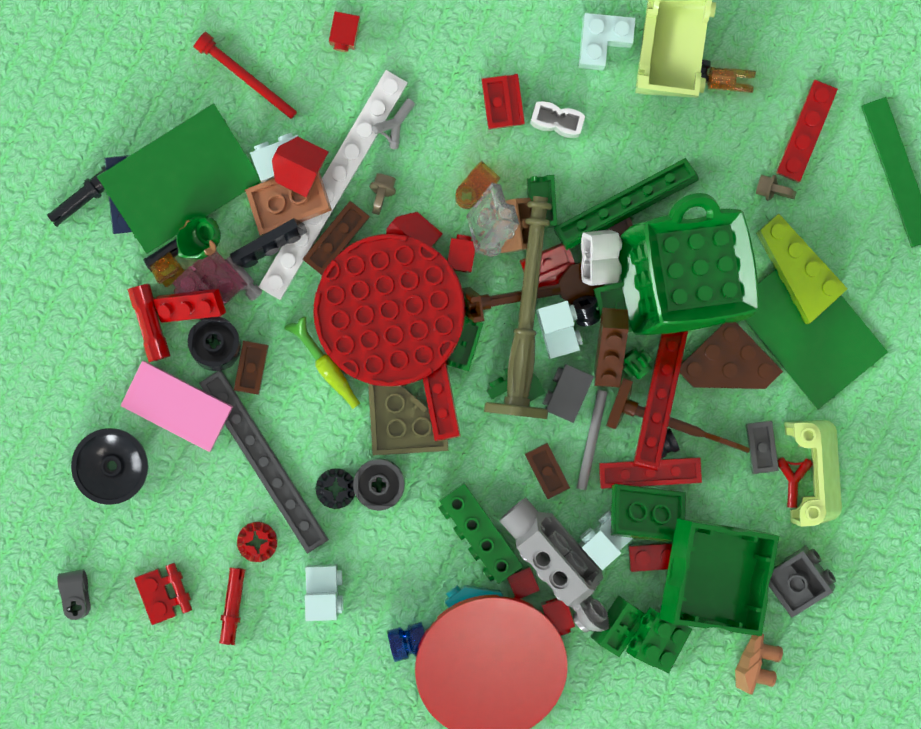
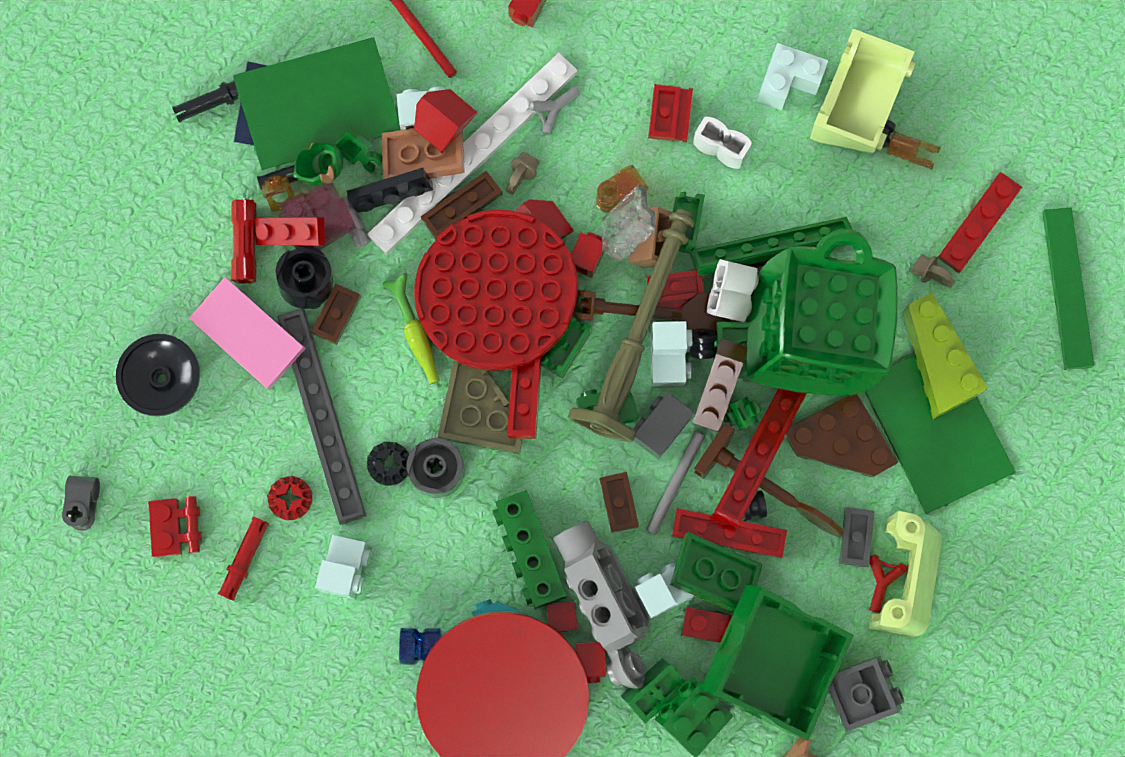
camera: 10 degrees right, 10 degrees down
(226, 210) = (356, 147): none -> green plate

